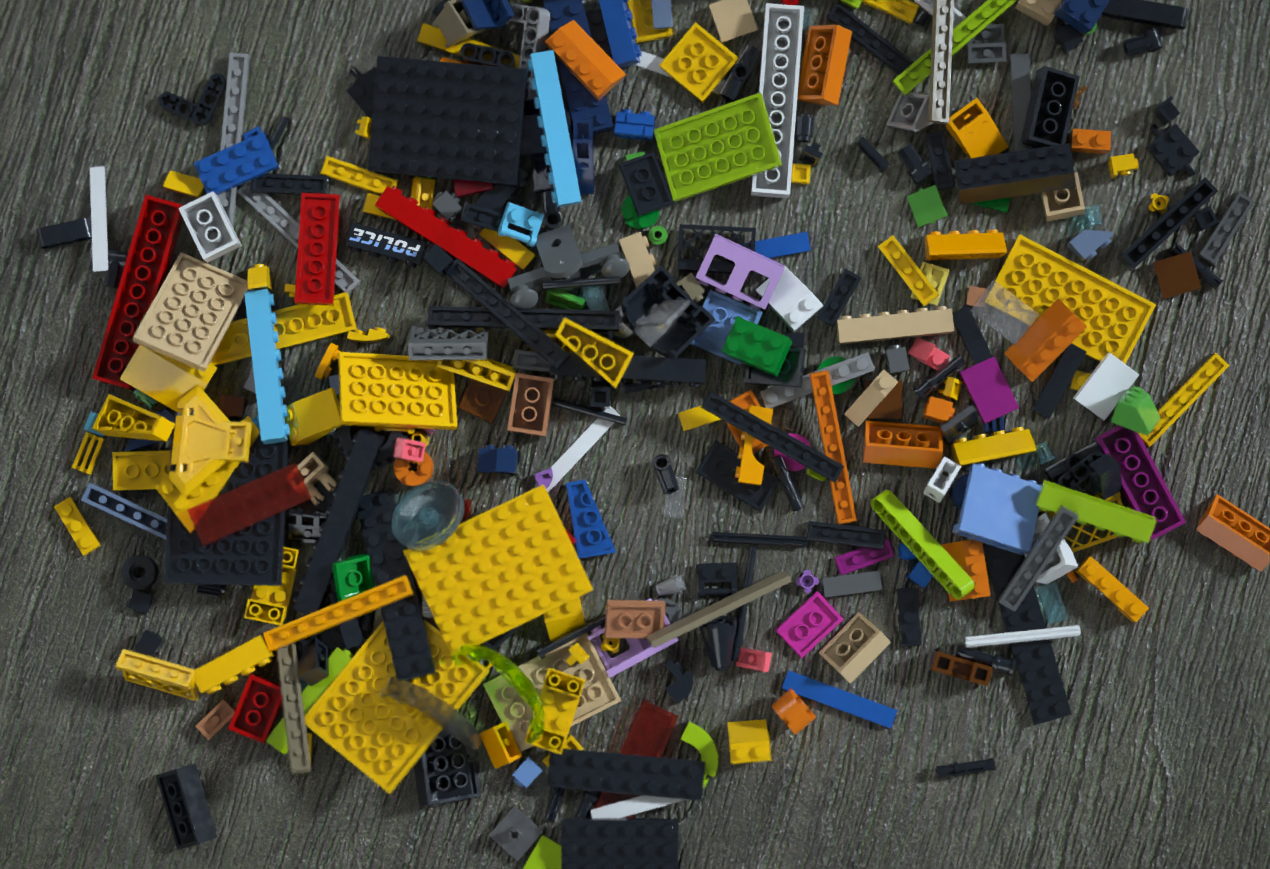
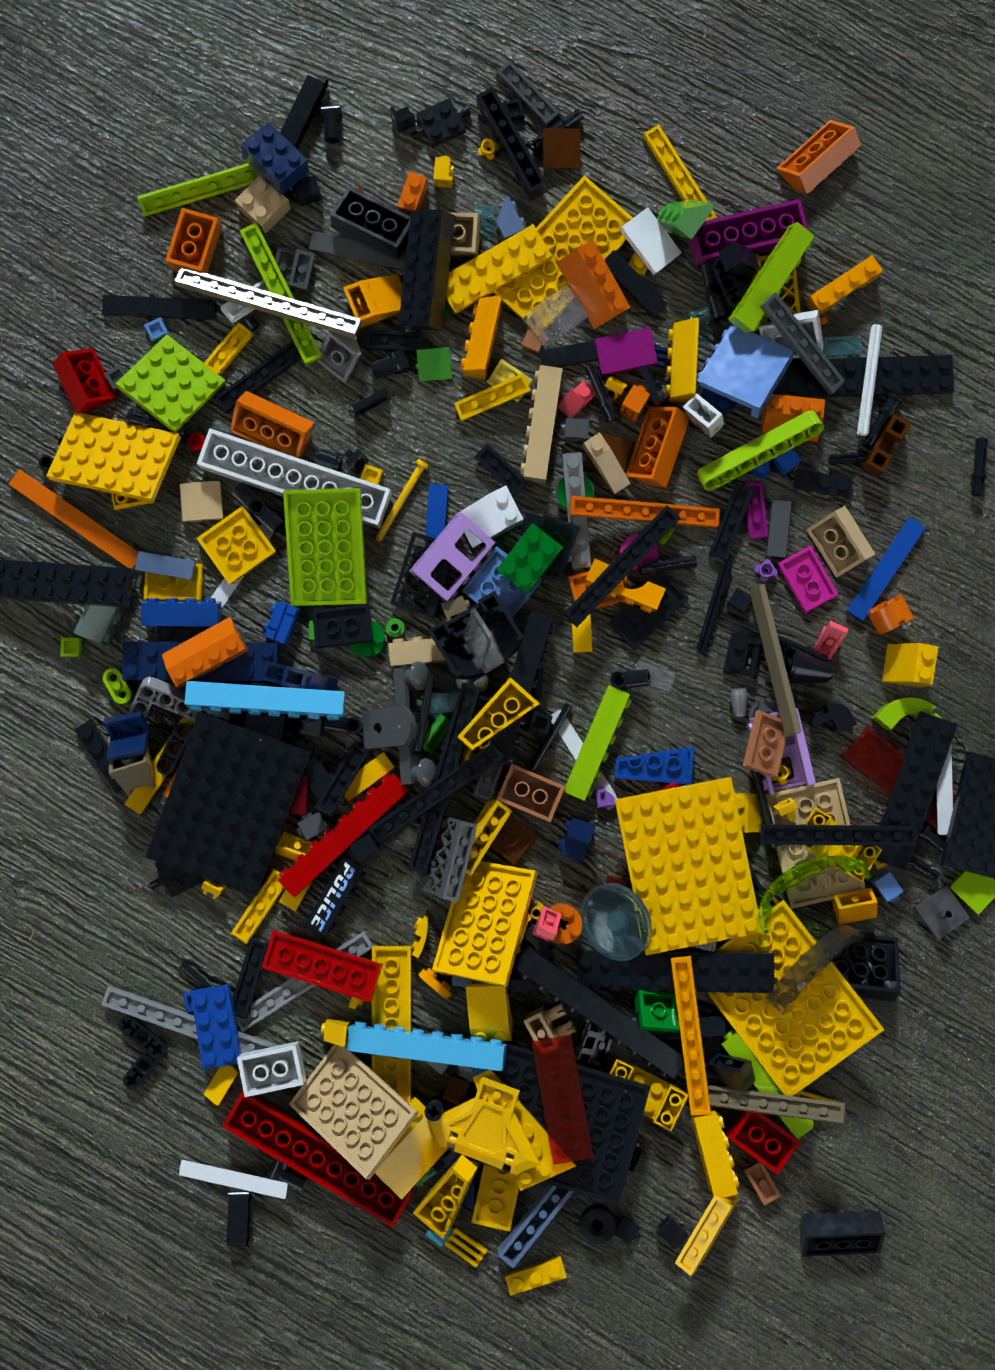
camera: 80 degrees left, 0 degrees up
(210, 387) = (434, 1113): none -> black pin
(521, 217) = (345, 753): medium azure plate -> none
(563, 706) = (837, 835): none -> black plate
(595, 457) = (596, 743): none -> lime brick
(771, 562) = (739, 600): none -> black slope
(785, 209) = (421, 465): none -> yellow bar
(940, 634) = (847, 458): none -> black axle
(1037, 241) = (496, 268): none -> yellow plate

